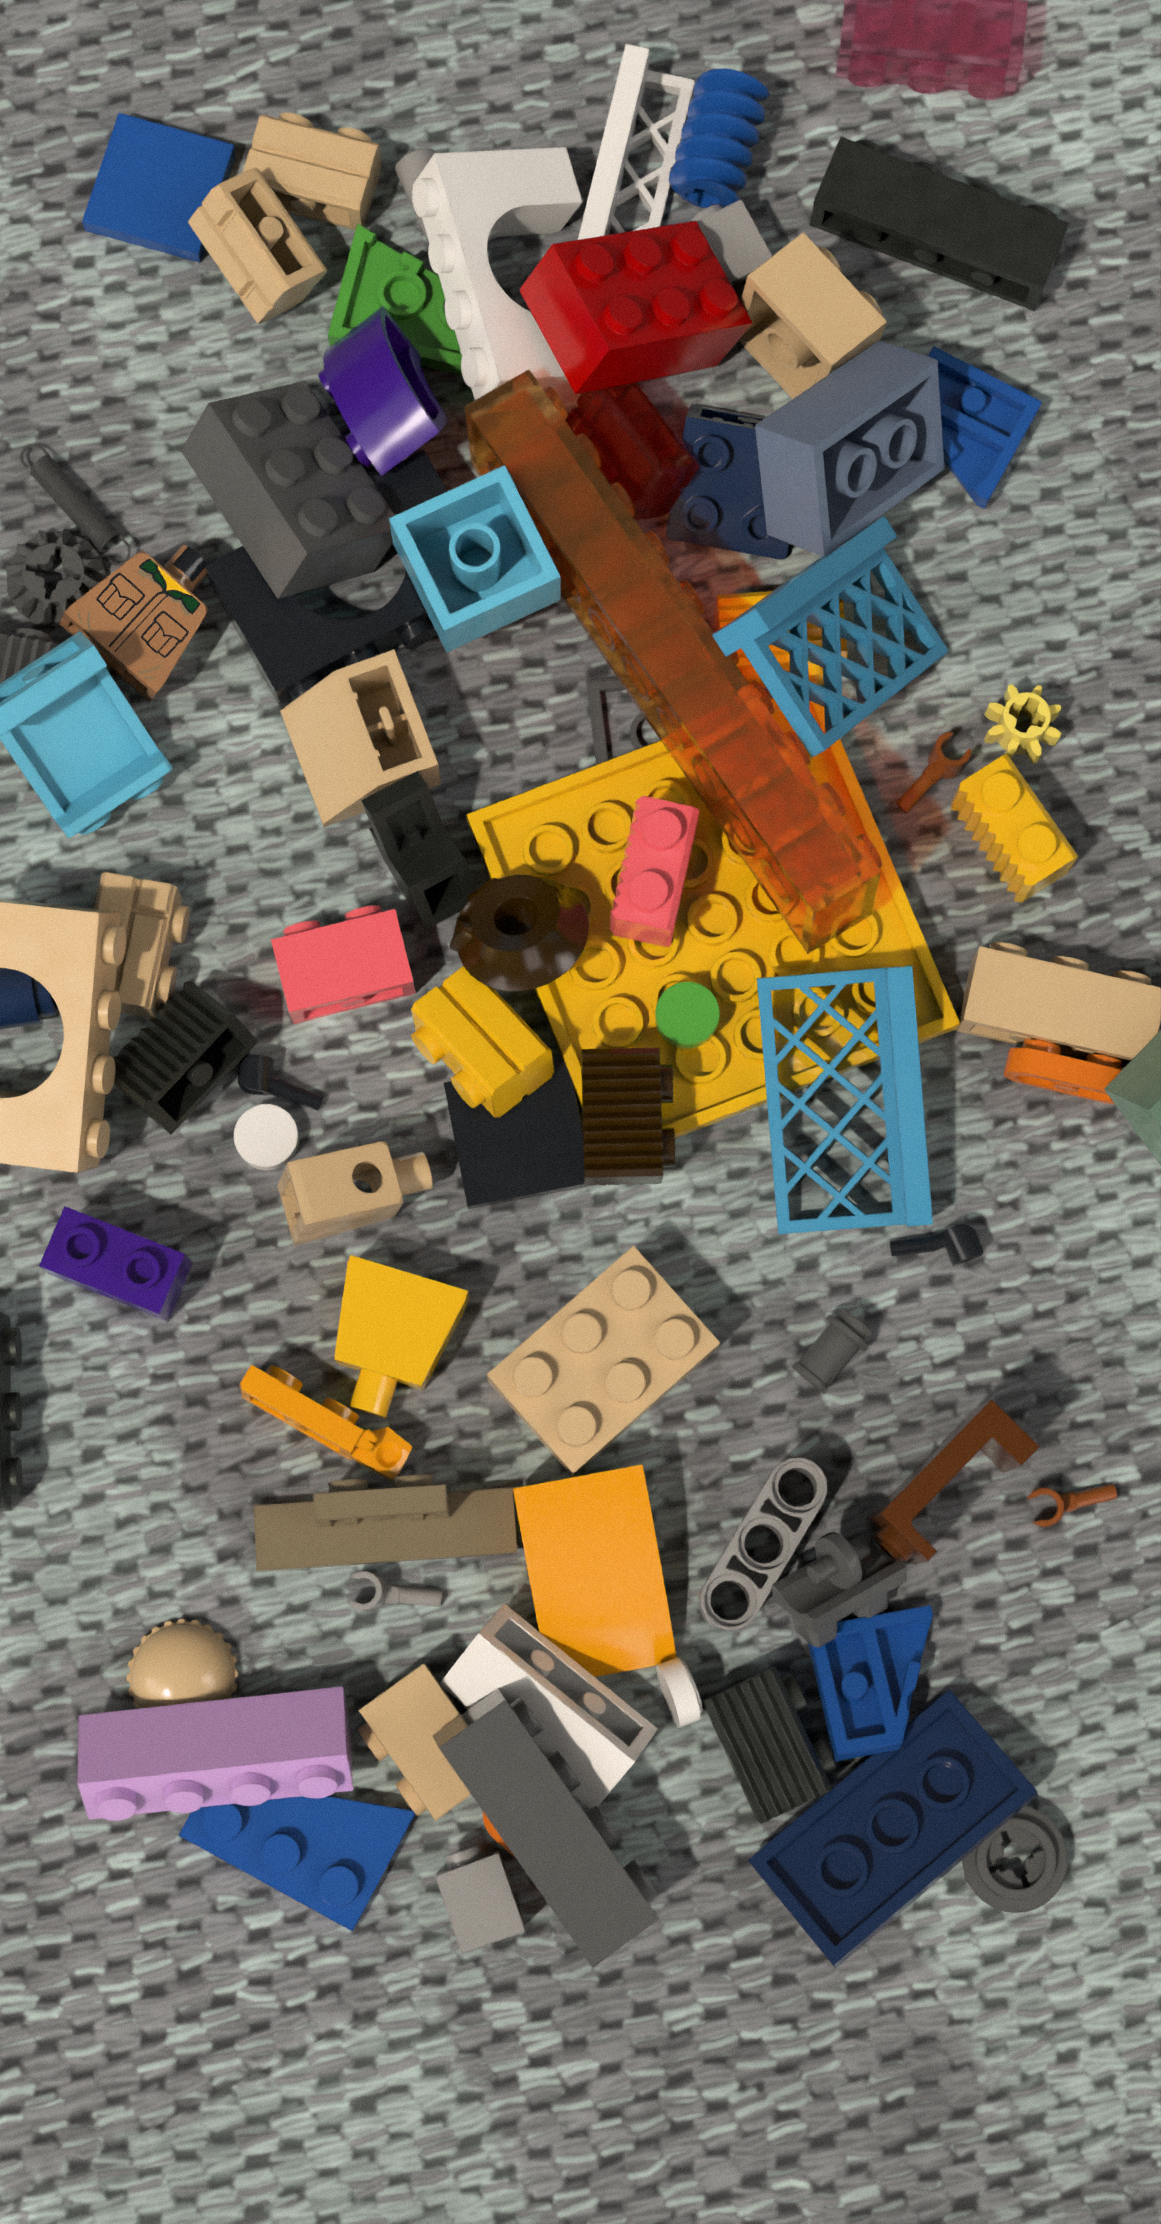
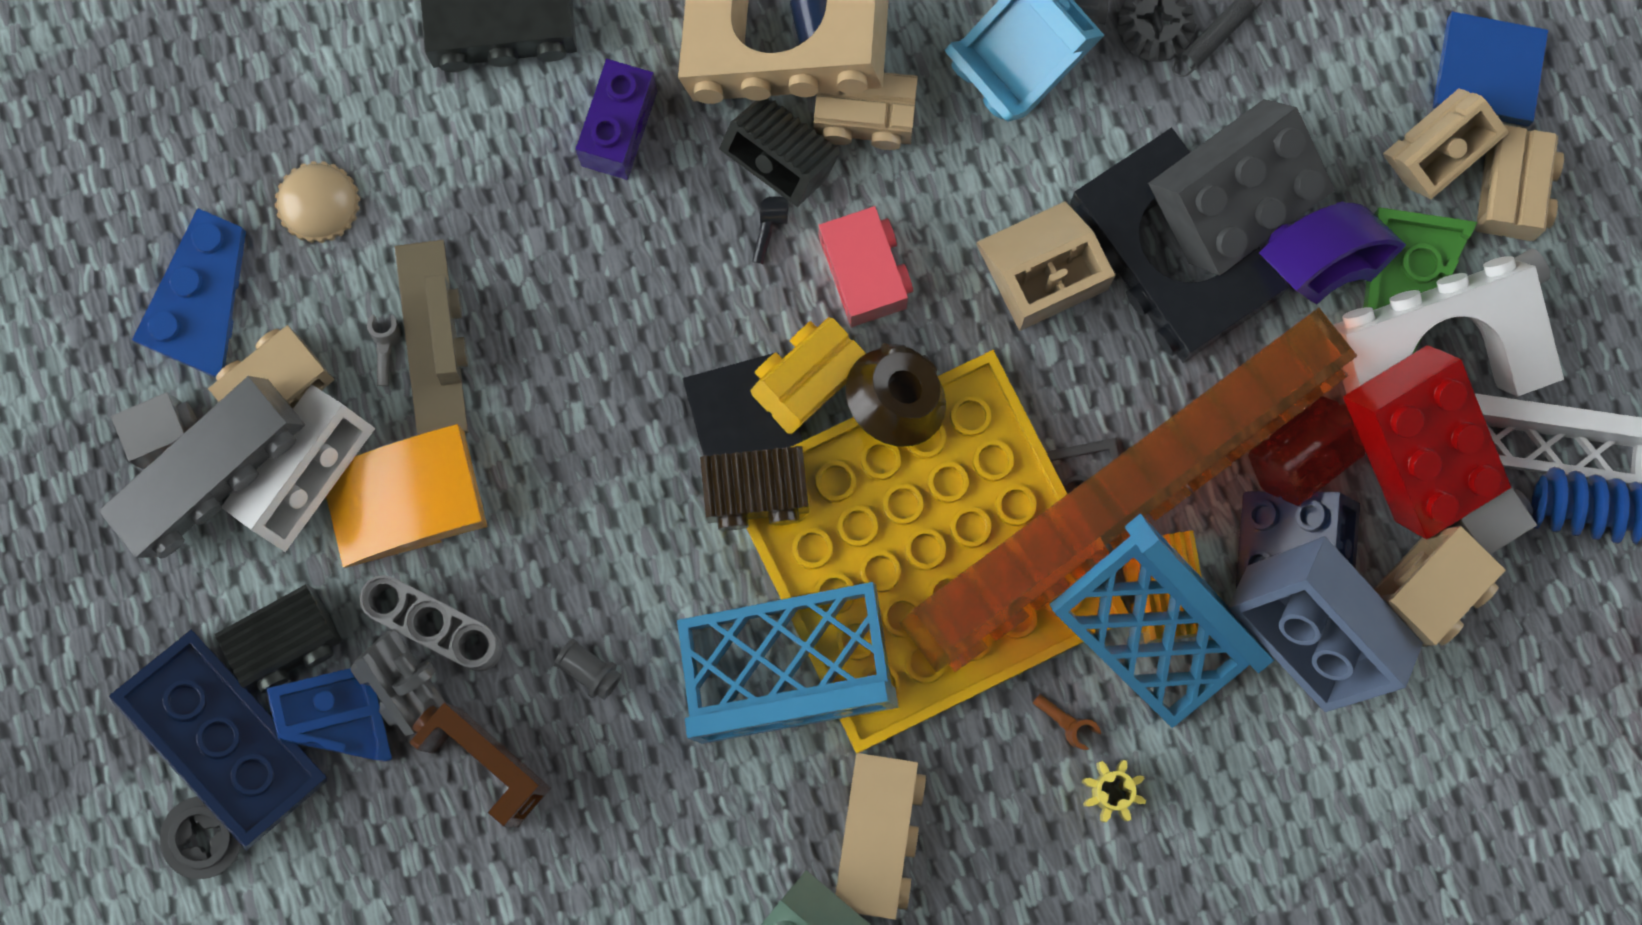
camera: 90 degrees right, 0 degrees up
(142, 617) = (1127, 87): medium nougat torso -> none
(214, 1753) = (253, 226): lavender brick -> none
(266, 1137) = (726, 223): white tile -> none
(325, 1202) = (678, 263): tan torso -> none
(327, 1423) = (506, 286): light orange hinge -> none
(393, 1330) = (581, 328): yellow torso -> none
(419, 850) = (959, 315): pearl dark grey brick -> none
(475, 558) = (1193, 327): medium azure brick -> none
(603, 1361) = (565, 488): tan brick -> none
(653, 871) = (954, 495): coral brick -> none
(679, 1692) = (316, 568): white tile -> none
(687, 1015) = (843, 532): bright green tile -> none
(938, 222) = (1544, 695): pearl dark grey brick -> none
(960, 1243) = (682, 766): black hand -> none
(980, 424) = (1371, 737): blue wing -> none
(1013, 828) = (1023, 787): yellow brick -> none
(1043, 1067) = (828, 823): orange plate -> none
(1072, 1500) = (480, 866): dark orange hand -> none

